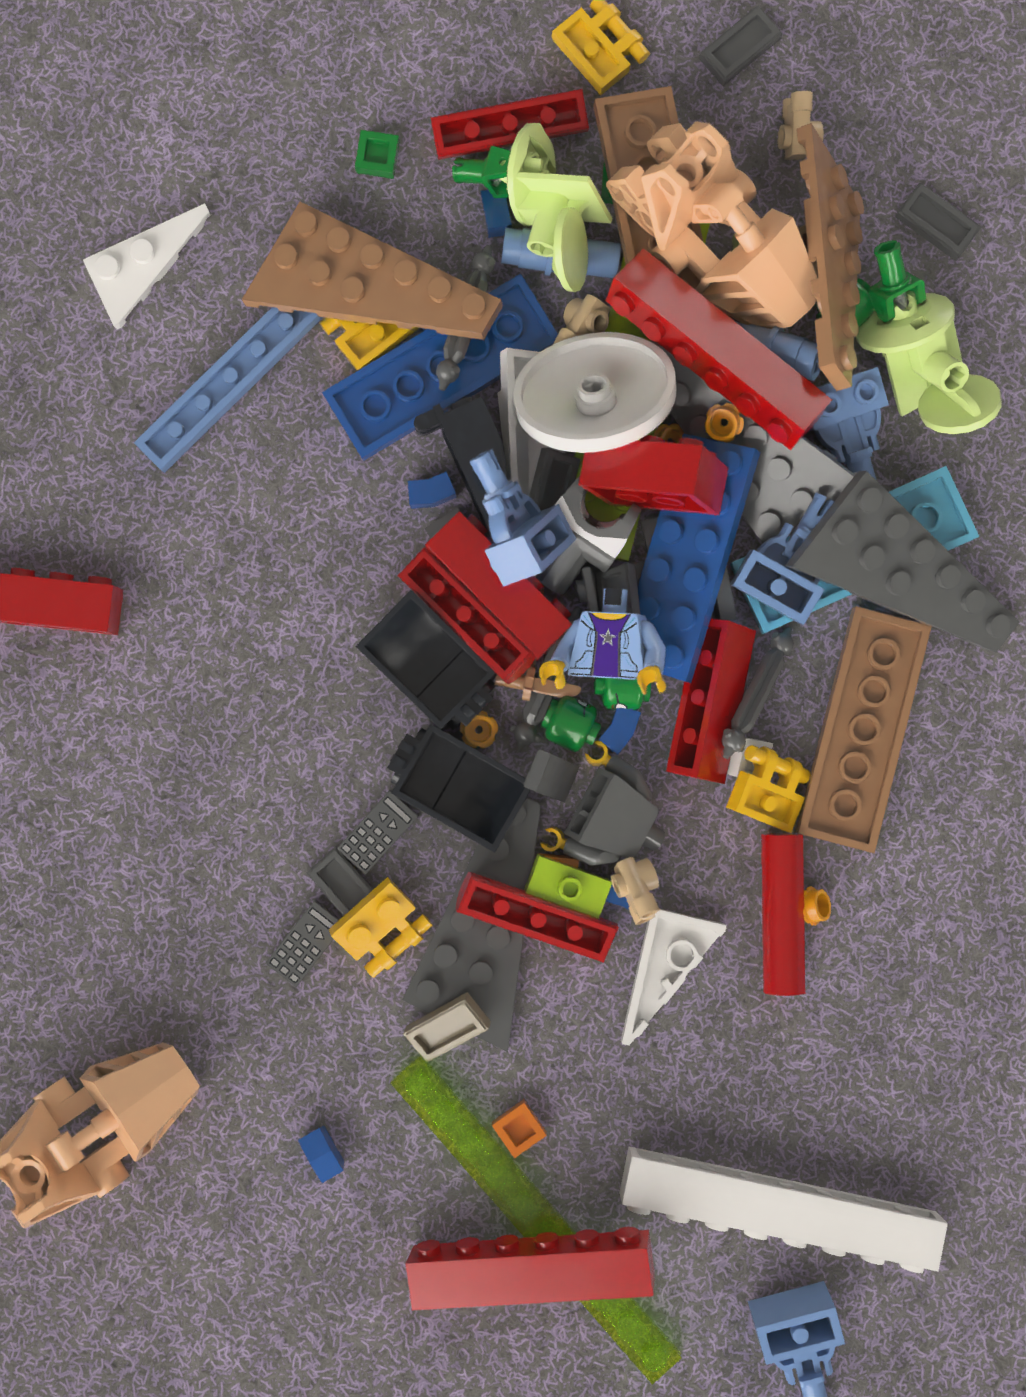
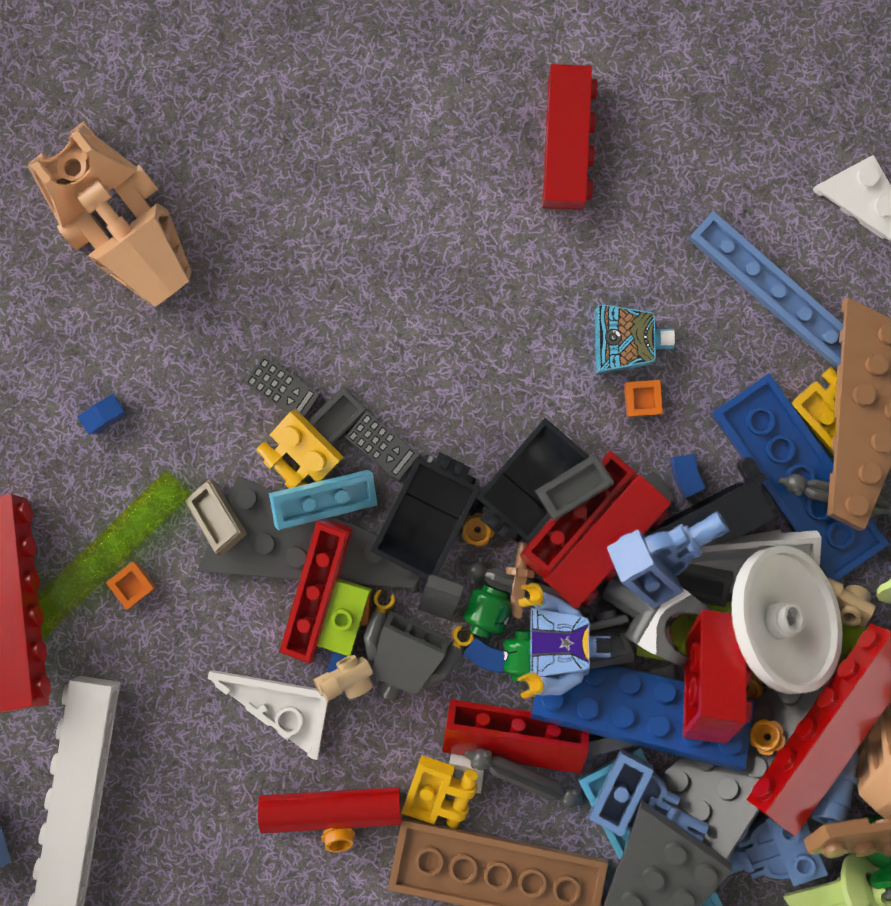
camera: 90 degrees right, 0 degrees up
(273, 548) = (627, 338): none -> torso
(342, 534) = (643, 398): none -> orange plate
(433, 903) = (323, 499): none -> medium azure plate
(435, 618) = (574, 487): none -> dark grey tile

